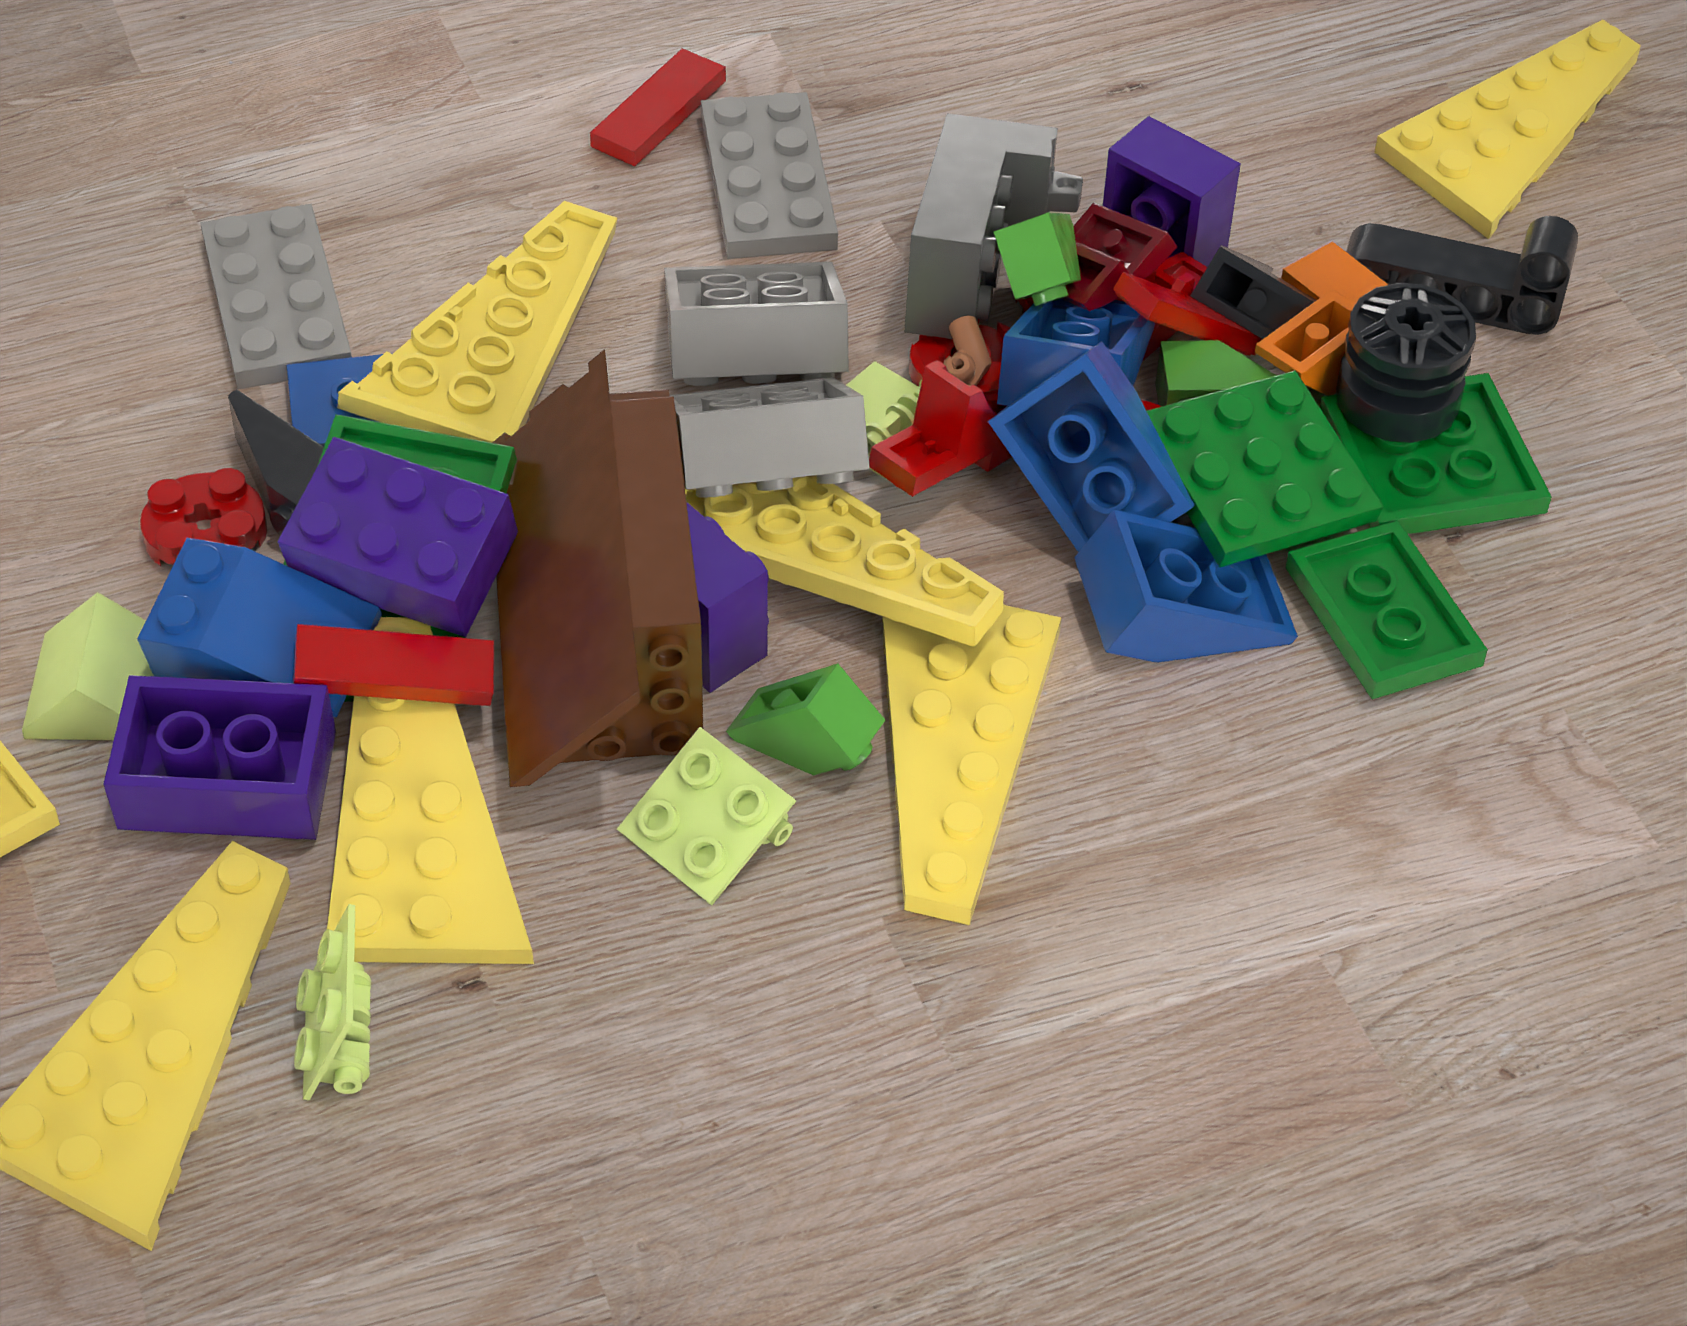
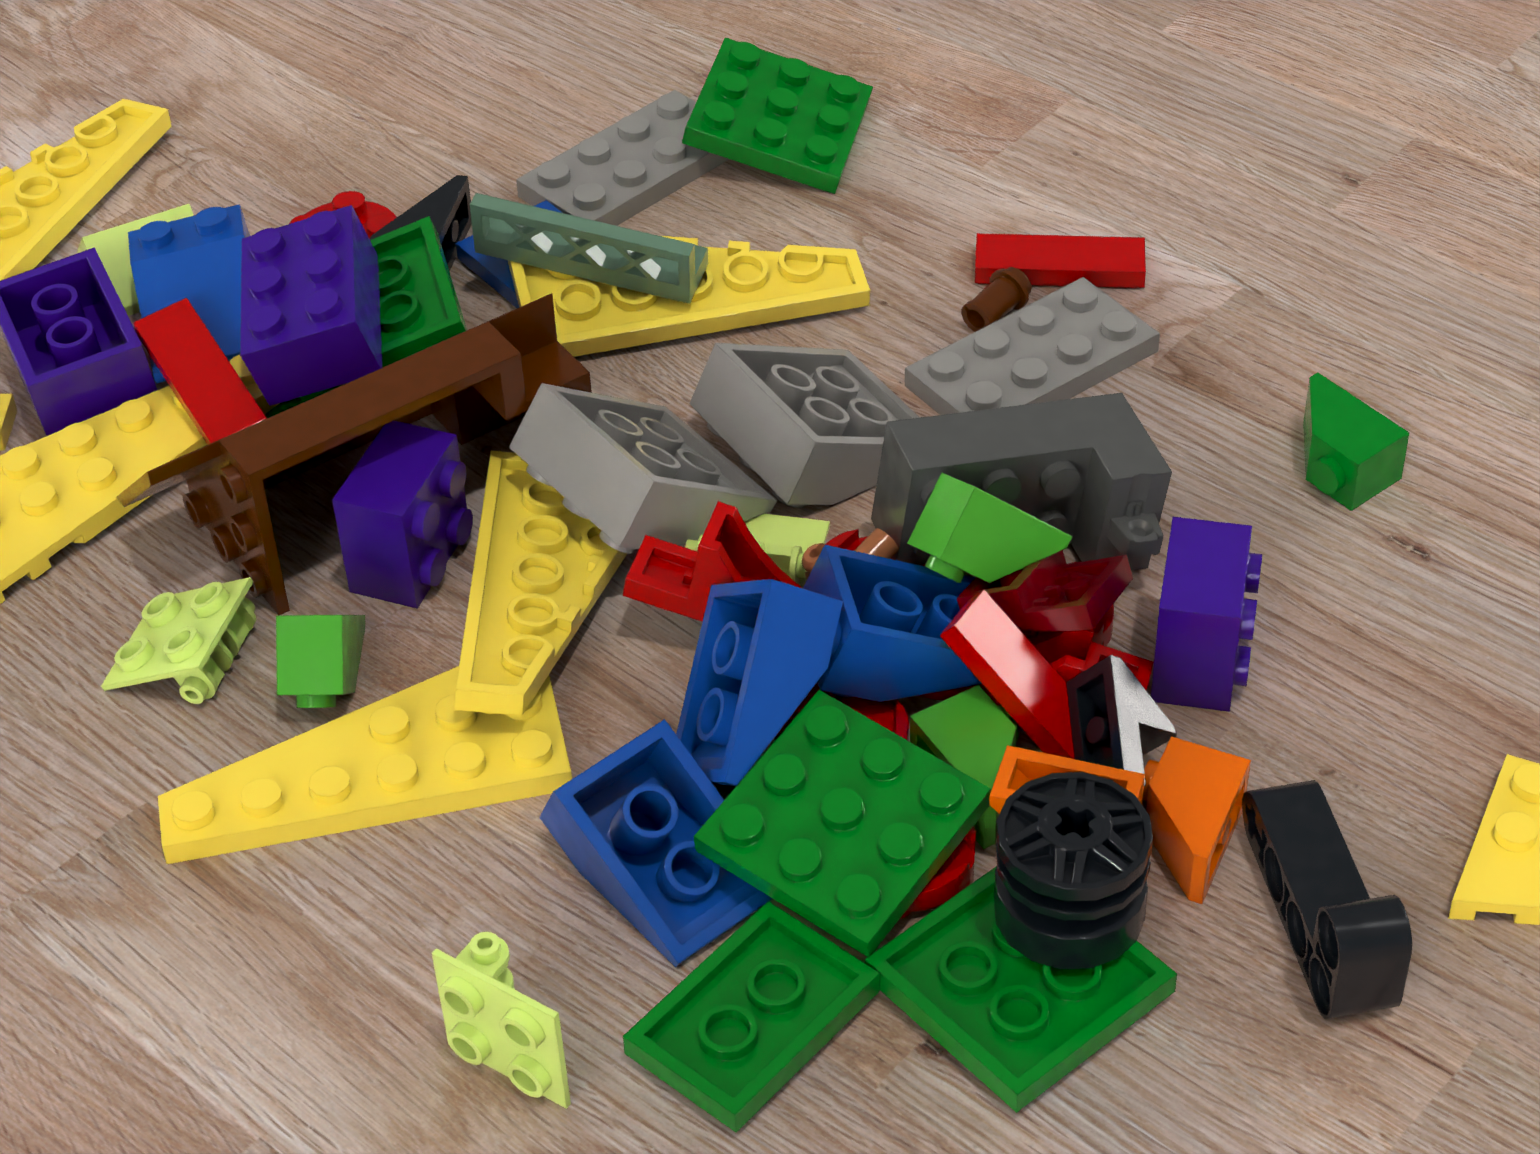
camera: 65 degrees right, 5 degrees down
(316, 172) = (778, 115): none -> green plate
(437, 346) = (587, 248): none -> sand green fence
(681, 149) = (1006, 291): none -> reddish brown pin
(1013, 59) = (1349, 445): none -> green slope
(1342, 739) = (498, 1024): none -> yellowish green hinge

